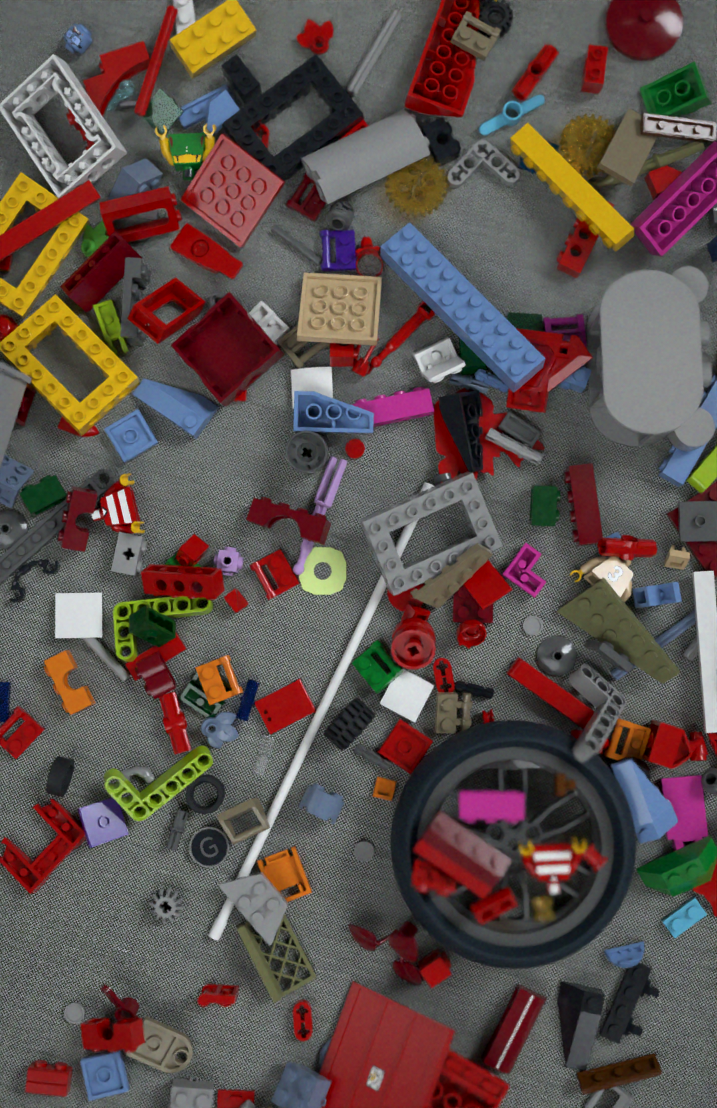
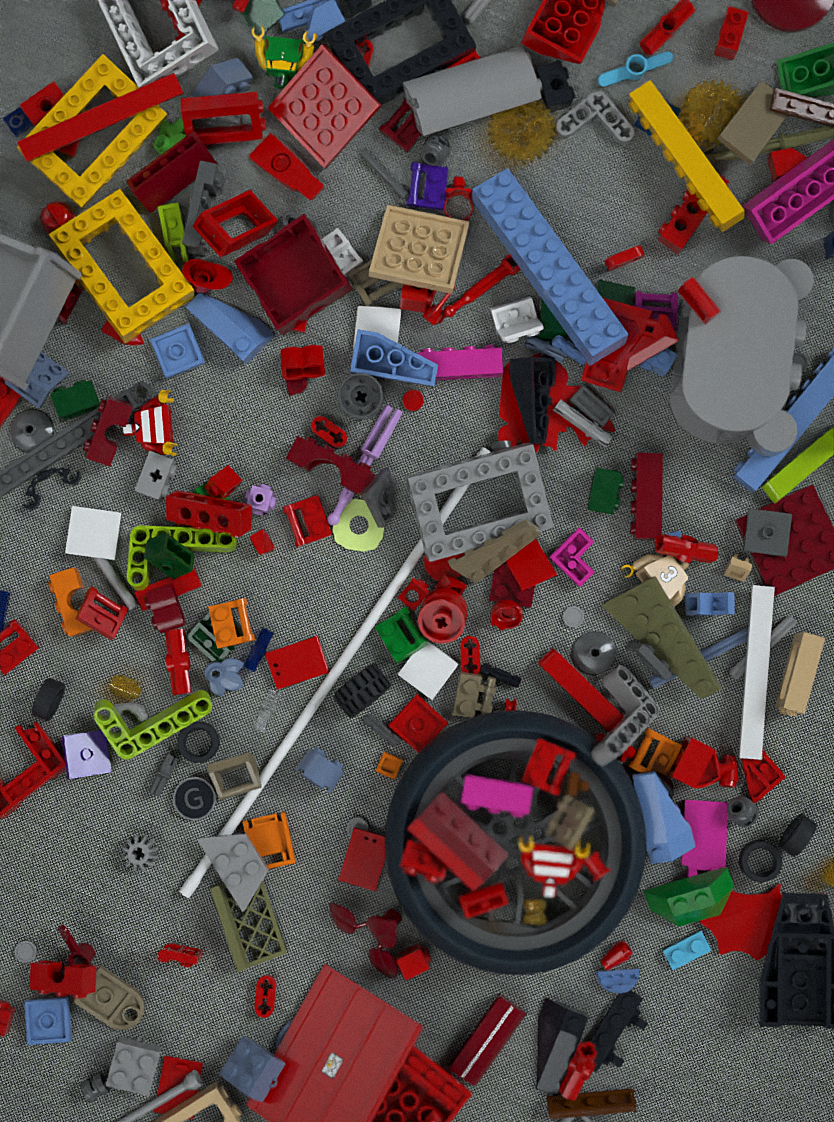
camera: 10 degrees right, 0 degrees up
(96, 694) = (97, 617): none -> red plate
(130, 754) = (125, 687): none -> clear yellow brick
(147, 363) = (206, 275): none -> red piece
(245, 449) = (296, 387): none -> dark red tile
(248, 429) = (302, 362): none -> red brick
(279, 493) = (332, 429): none -> red beam
(338, 542) = (379, 497): none -> flat silver tile
(374, 879) = (363, 859): none -> red container
(386, 619) = (418, 586): none -> red bracket
(527, 770) = (541, 763): none -> red plate
(528, 289) = (624, 258): none -> red beam
(567, 820) = (573, 824): none -> dark tan plate
(603, 1046) = (579, 1070): none -> red piece
(607, 317) = (699, 300): none -> red brick
(622, 931) = (618, 954): none -> red cone

